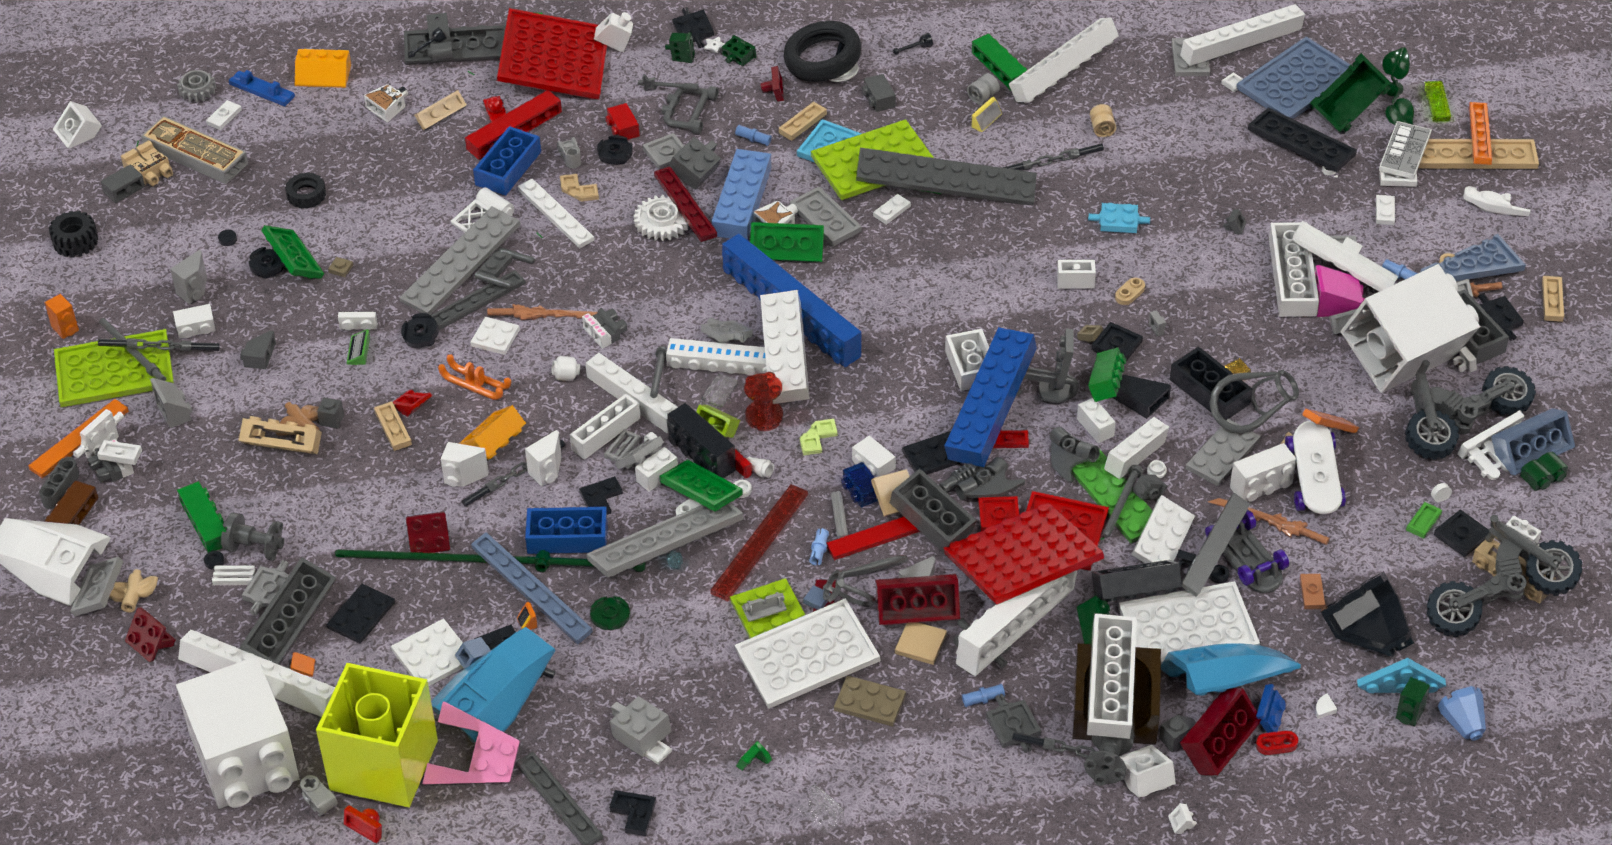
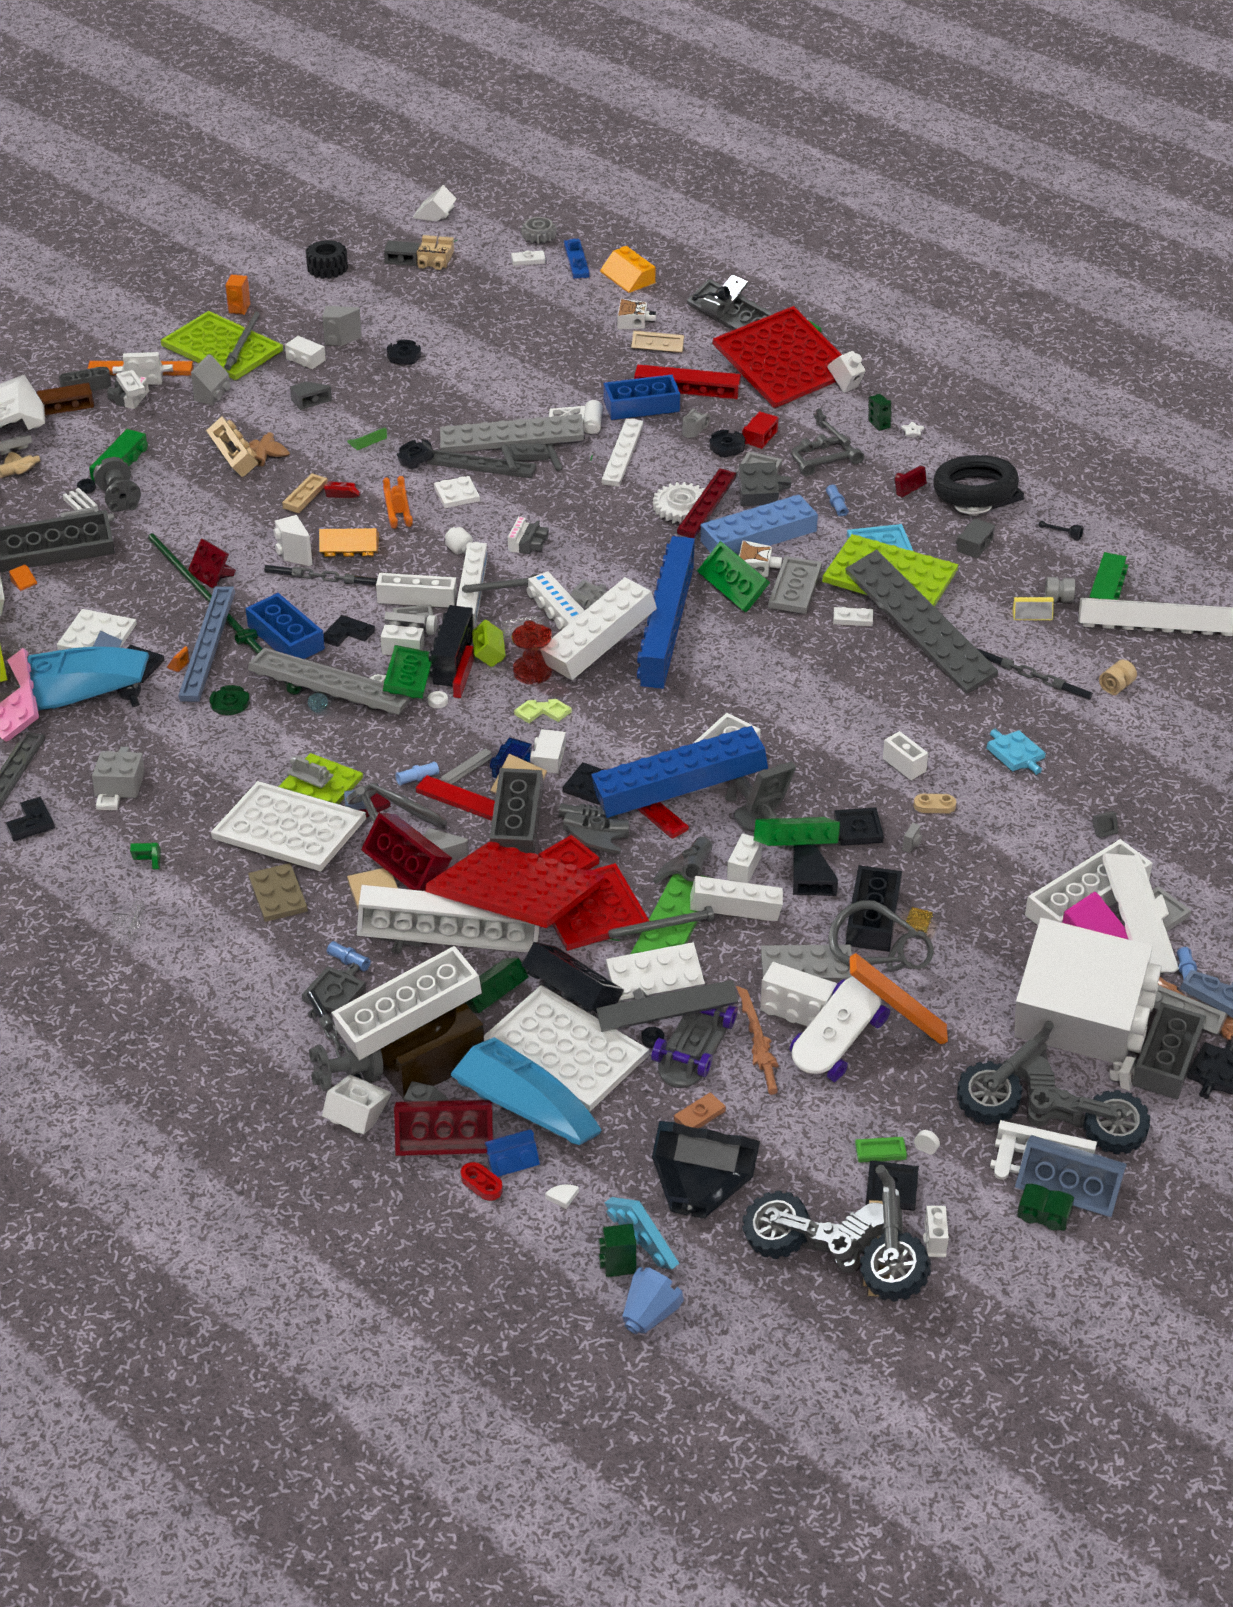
camera: 50 degrees right, 5 degrees down
(184, 345) = (243, 334): piece -> none
(196, 149) = (474, 263): brick -> none
(227, 237) = (408, 324): black tile -> none
(292, 252) = (422, 354): green plate -> none
(305, 180) = (496, 322): black tyre -> none
(330, 413) = (282, 456): dark grey brick -> none
(340, 267) = (440, 386): dark tan plate -> none
(357, 320) = (391, 420): white plate -> none
(360, 613) = (102, 579): black plate -> none
(494, 107) = (697, 362): red tile -> none
(533, 313) = (495, 491): nougat sword -> none
(544, 459) = (346, 577): white slope -> none
(571, 186) = (661, 448): tan tile -> none
(695, 23) = (917, 409): black plate -> none
(738, 51) = (920, 444): dark green piece -> none
(759, 542) = (390, 739): clear red tile -> none
(761, 467) = (470, 697): white cone -> none
(802, 121) = (888, 516): tan plate -> none
(1089, 333) = (848, 802): dark tan plate -> none
(1149, 487) = (700, 932): dark grey brick -> none
(1157, 468) = (734, 930): white plate -> none
(1181, 819) = (324, 1159): white tile -> none

